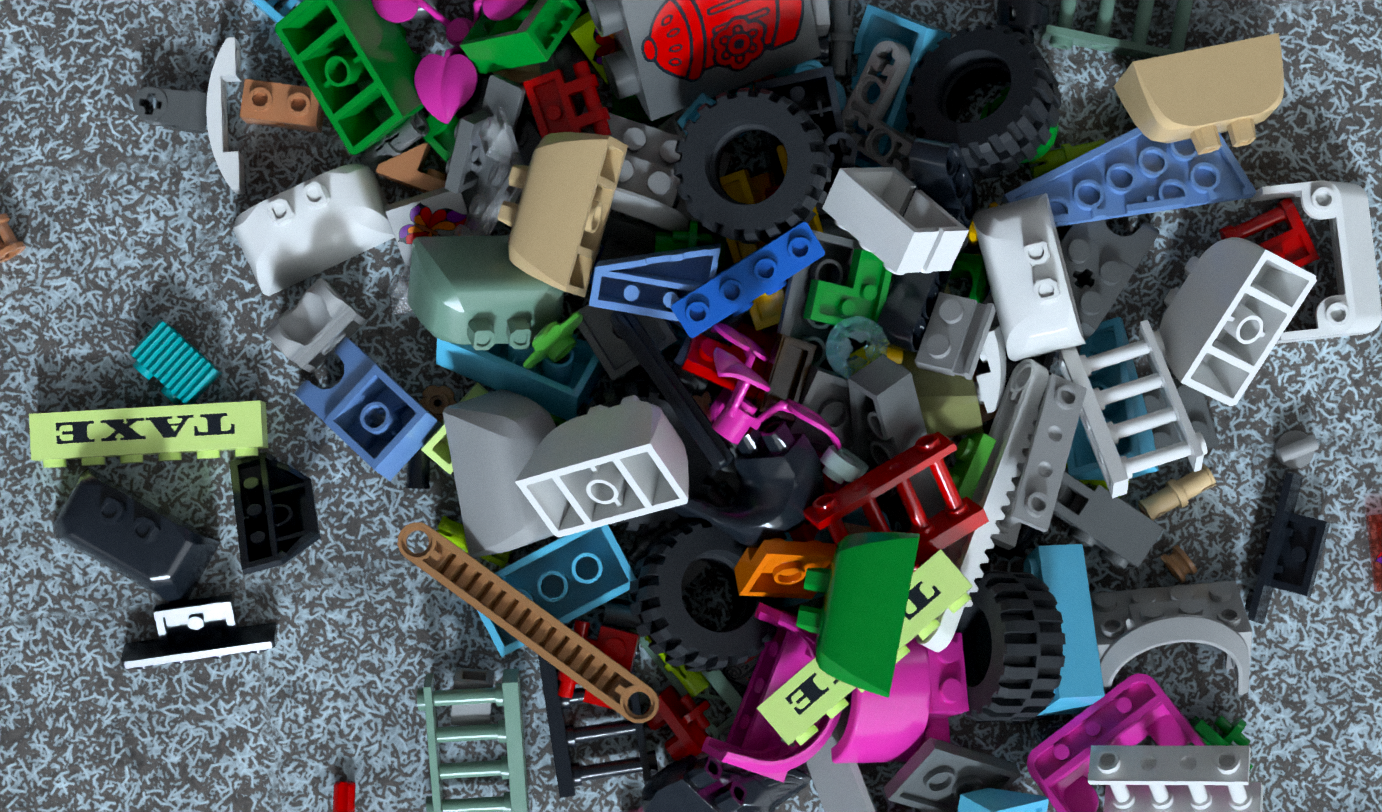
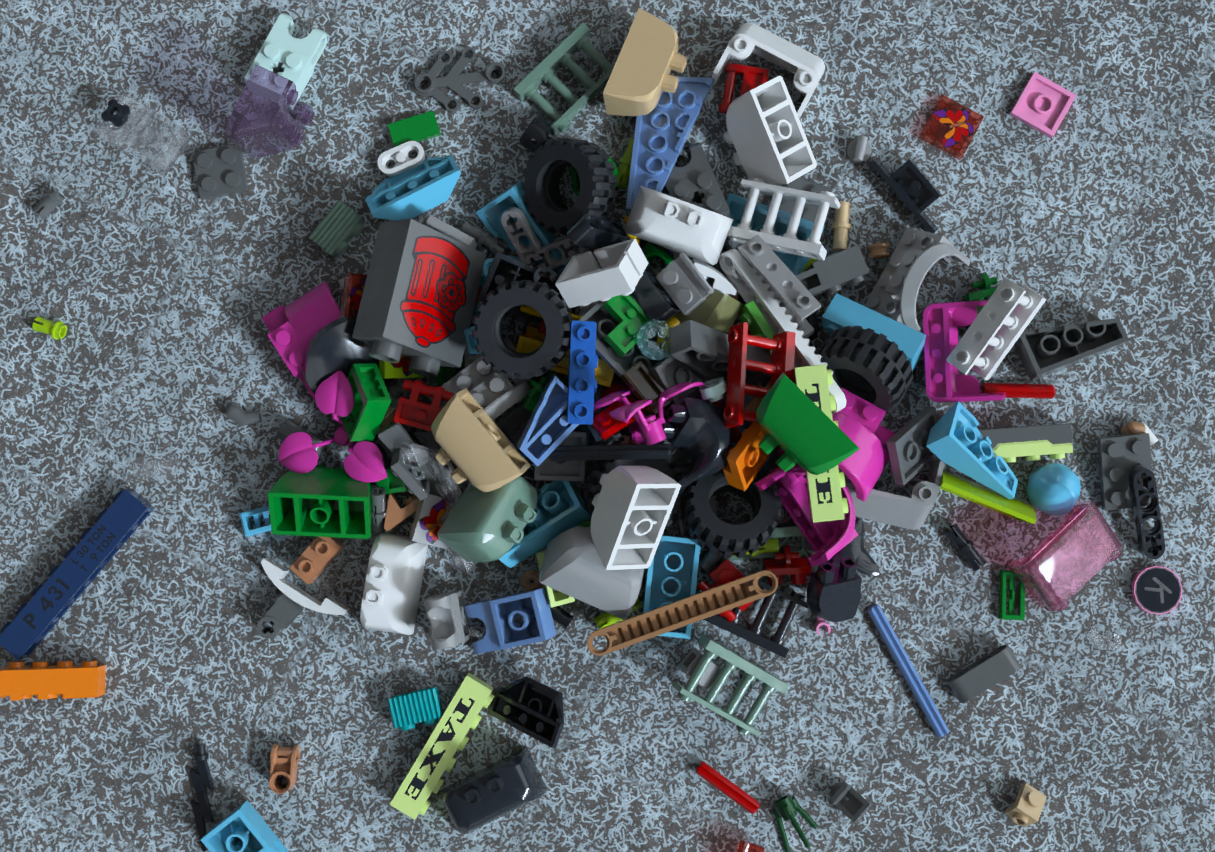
camera: 50 degrees left, 0 degrees up
(198, 631) = (566, 792): black bracket -> none
(554, 341) = (542, 497): bright green plate -> none

